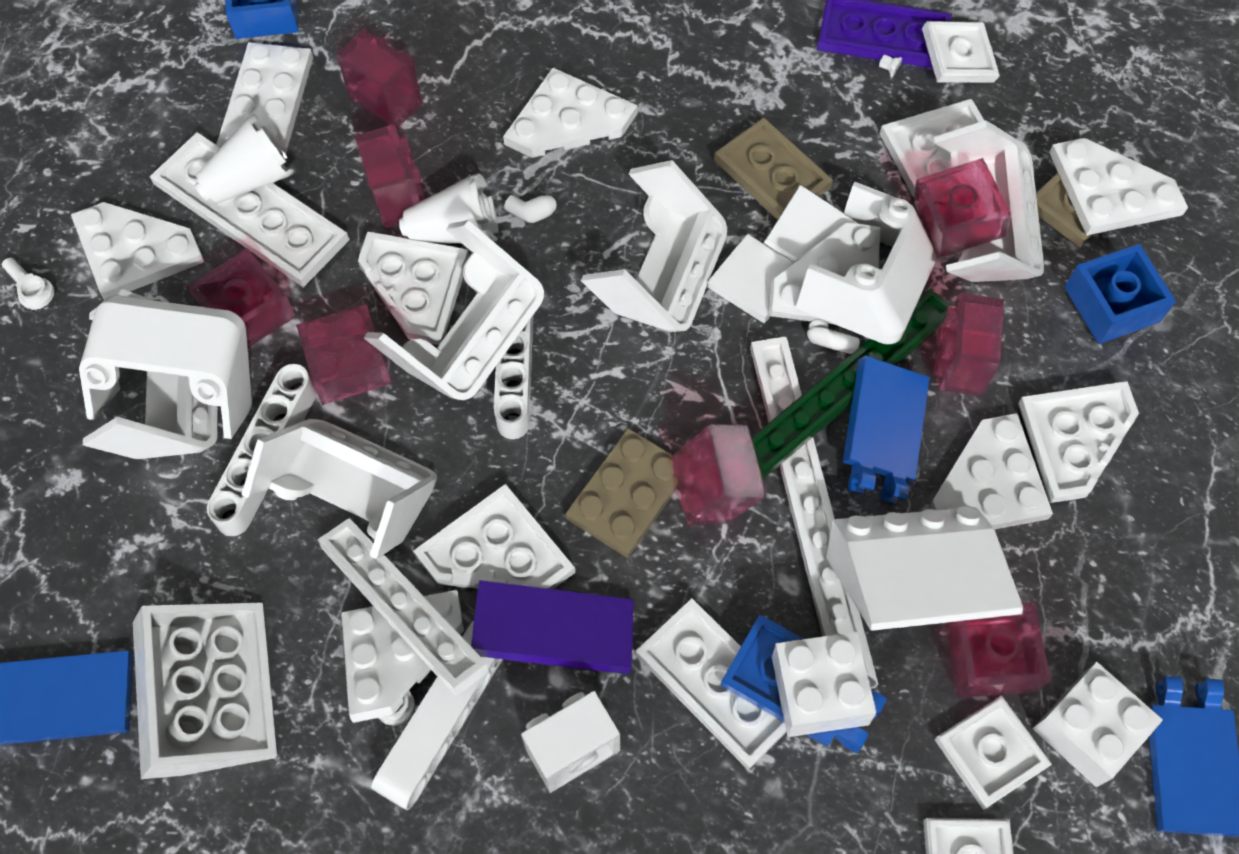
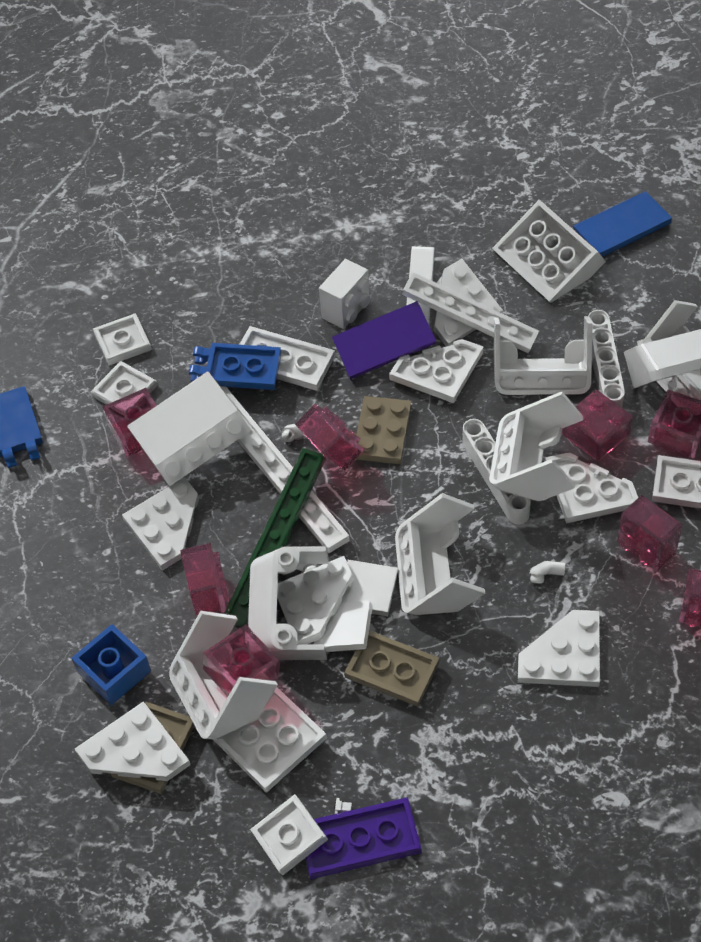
camera: 160 degrees right, 10 degrees down
(457, 203) = (586, 532): white cone -> none
(744, 541) = (291, 432): none -> white arm
(823, 684) = (225, 352): white brick -> none
(885, 427) = (241, 516): blue tile -> none
(1077, 435) = (117, 569): white plate -> none
(1097, 725) = (70, 413): white brick -> none

